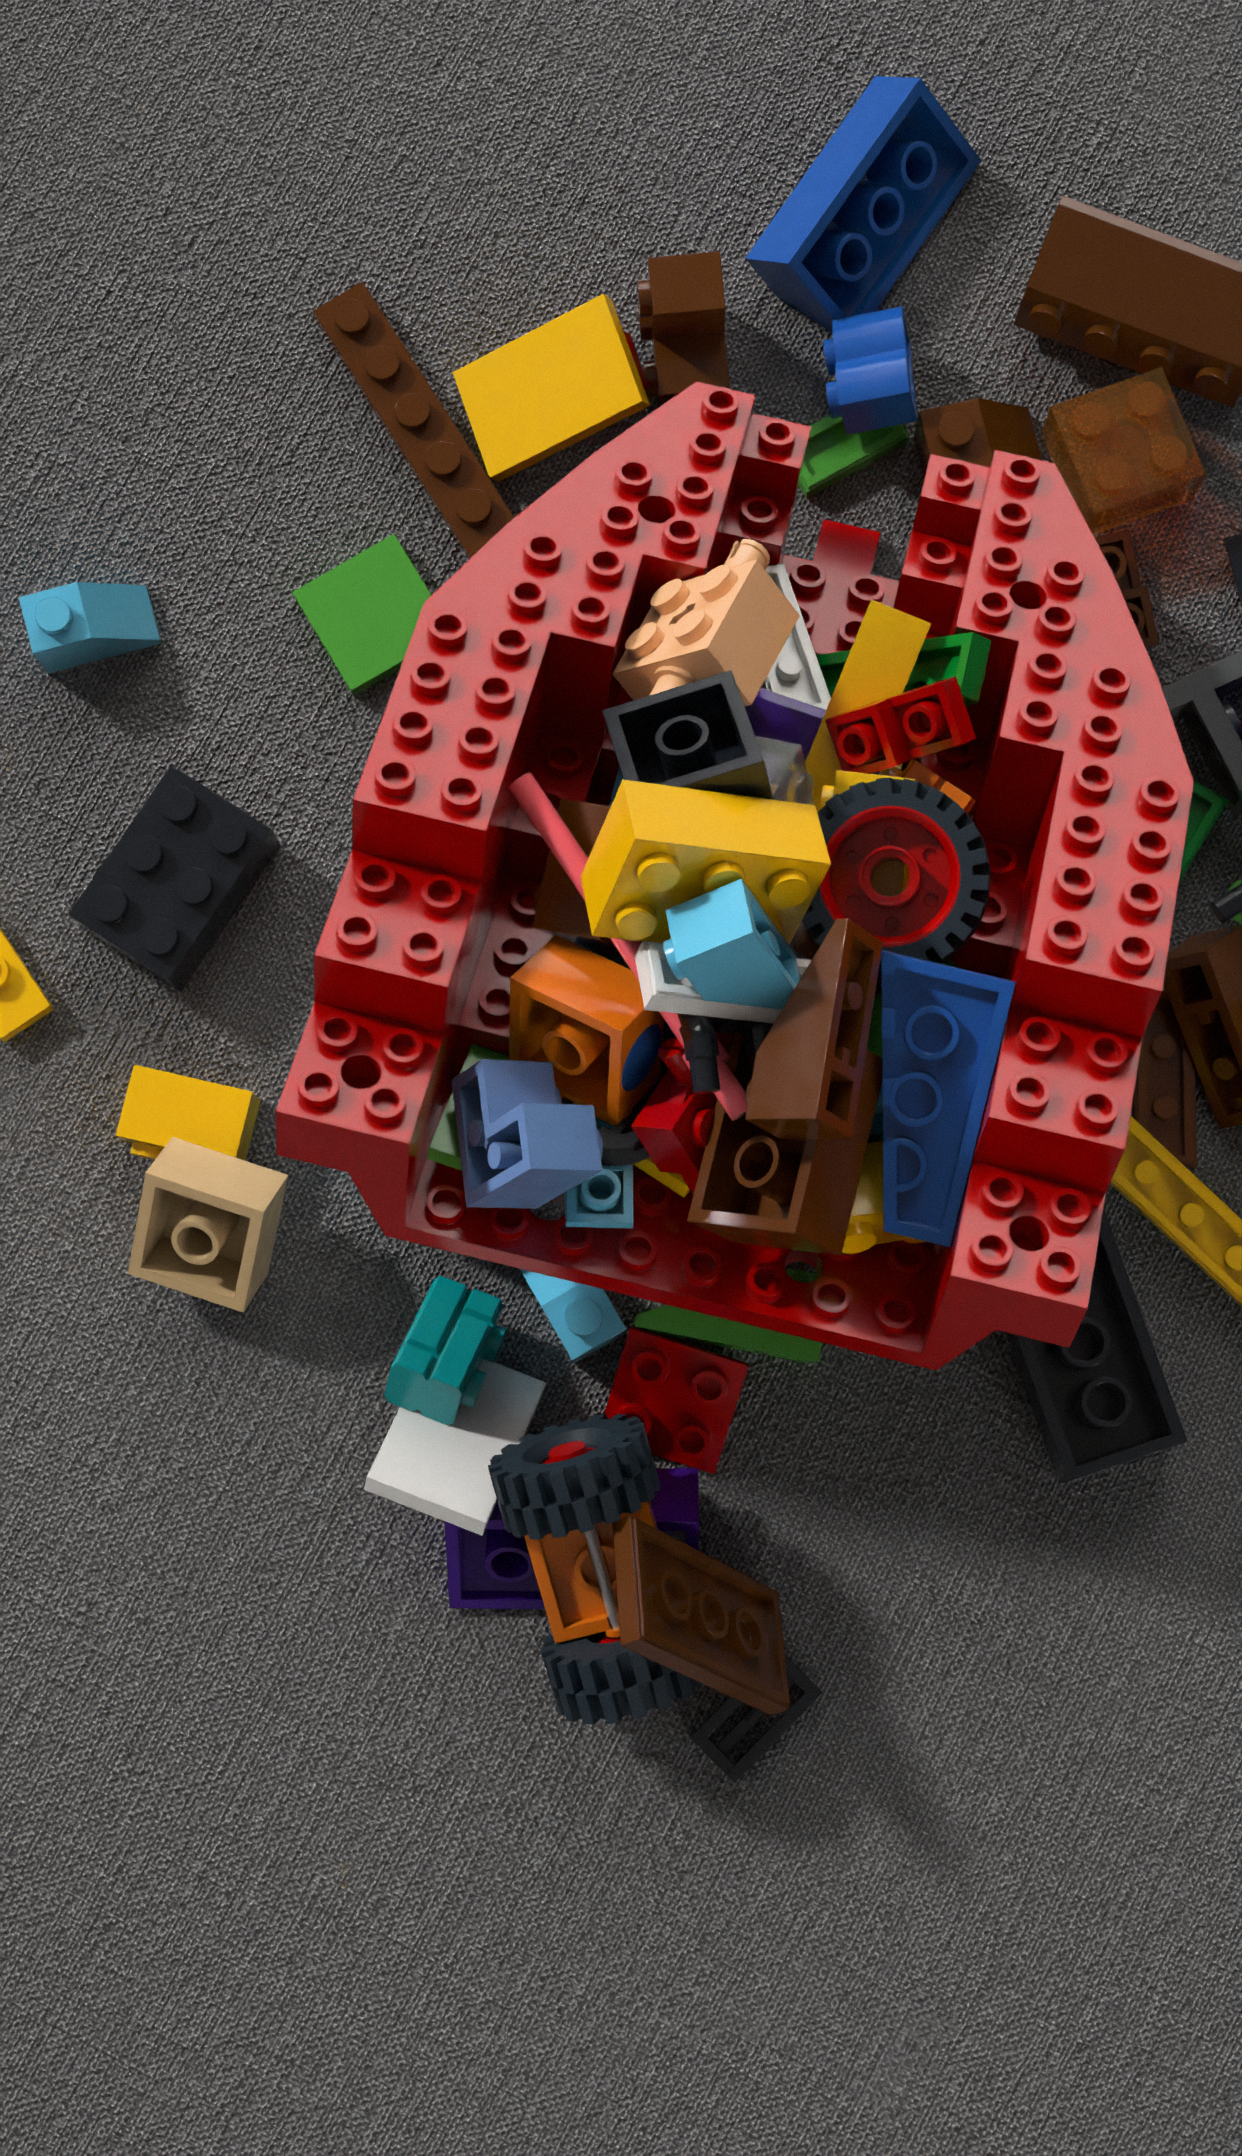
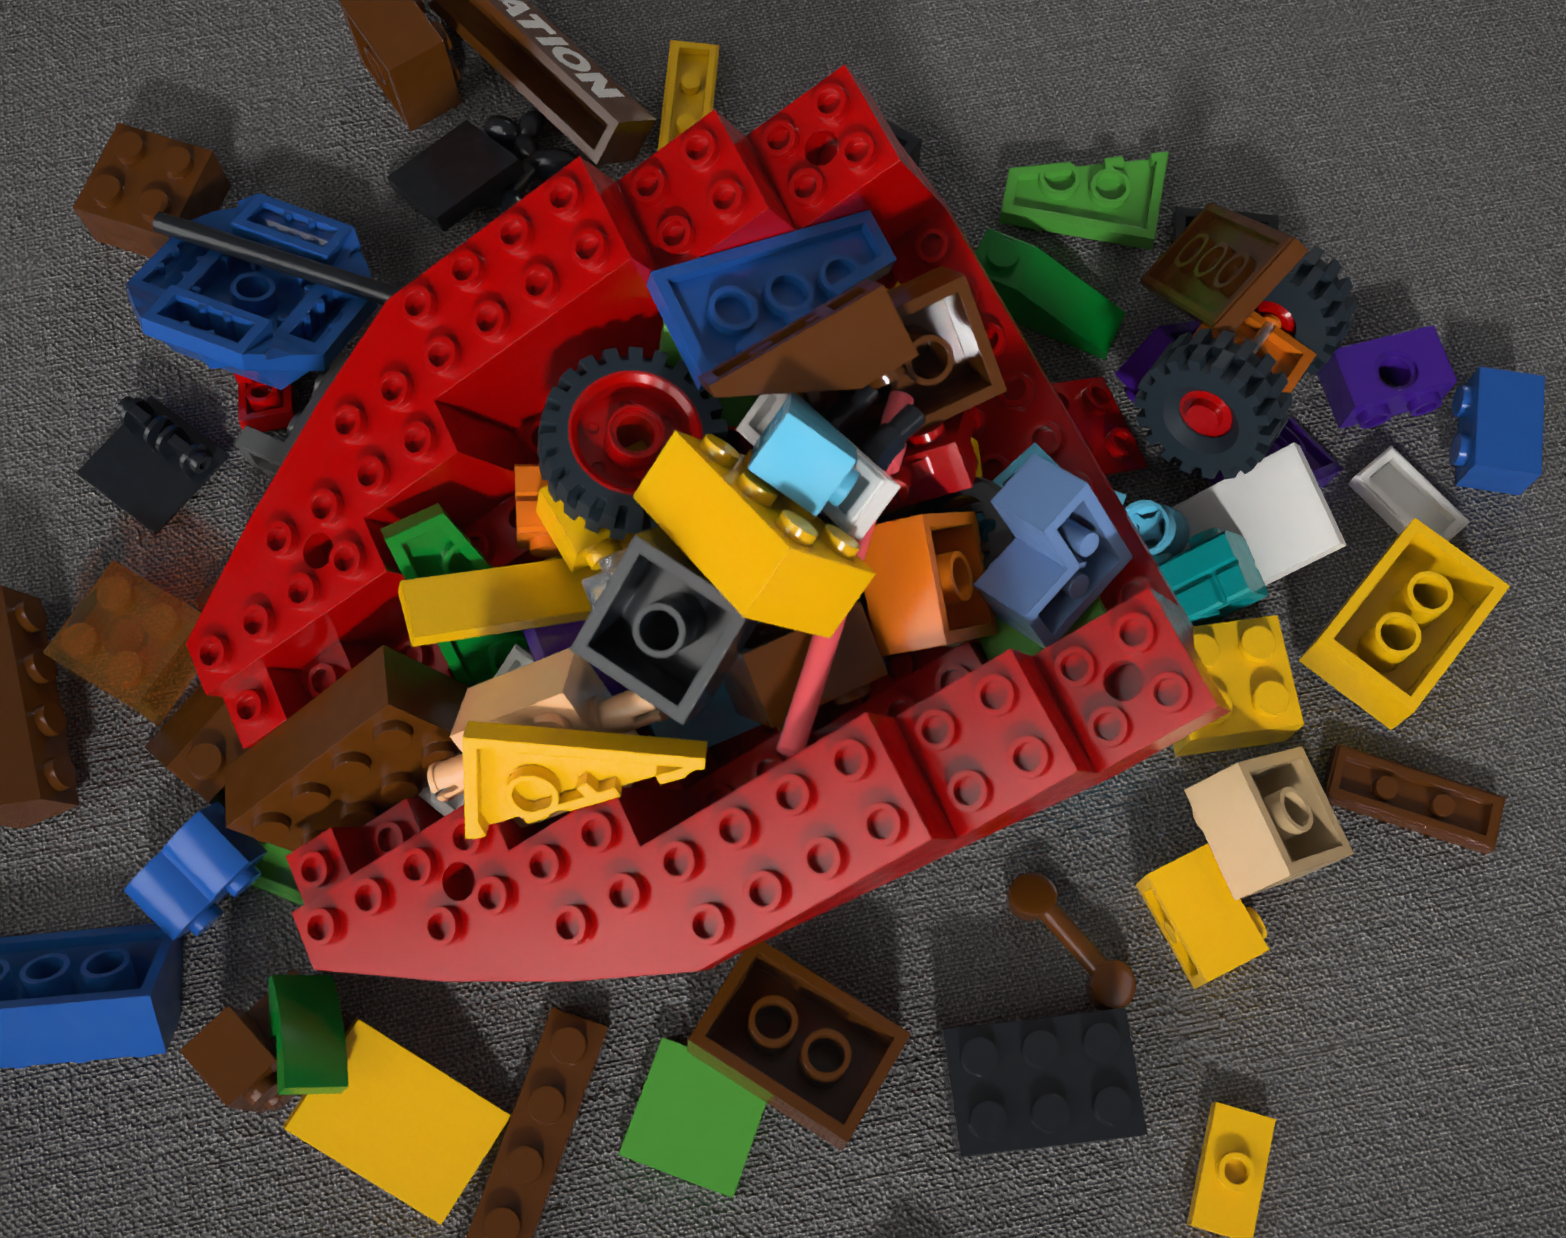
camera: 135 degrees left, 10 degrees down
(132, 1385) = (1413, 799): none -> reddish brown tile
(204, 1006) = (1109, 982): none -> reddish brown bar
(268, 1502) = (1404, 624): none -> yellow brick
(327, 717) = (797, 1043): none -> reddish brown brick
(345, 1307) = (1256, 682): none -> yellow brick
(363, 1772) = (1498, 431): none -> blue brick
(371, 1634) = (1401, 493): none -> white tile
(484, 1758) = (1408, 359): none -> dark purple brick
(526, 1364) = (1147, 519): none -> medium azure wheel
(653, 615) = (548, 769): none -> yellow wing
(657, 352) = (308, 1034): none -> green slope
(829, 1480) = (1047, 295): none -> green slope
(853, 526) = (346, 752): none -> reddish brown brick
(895, 1617) = (1095, 202): none -> bright green wing
(901, 728) = (507, 555): red slope -> none

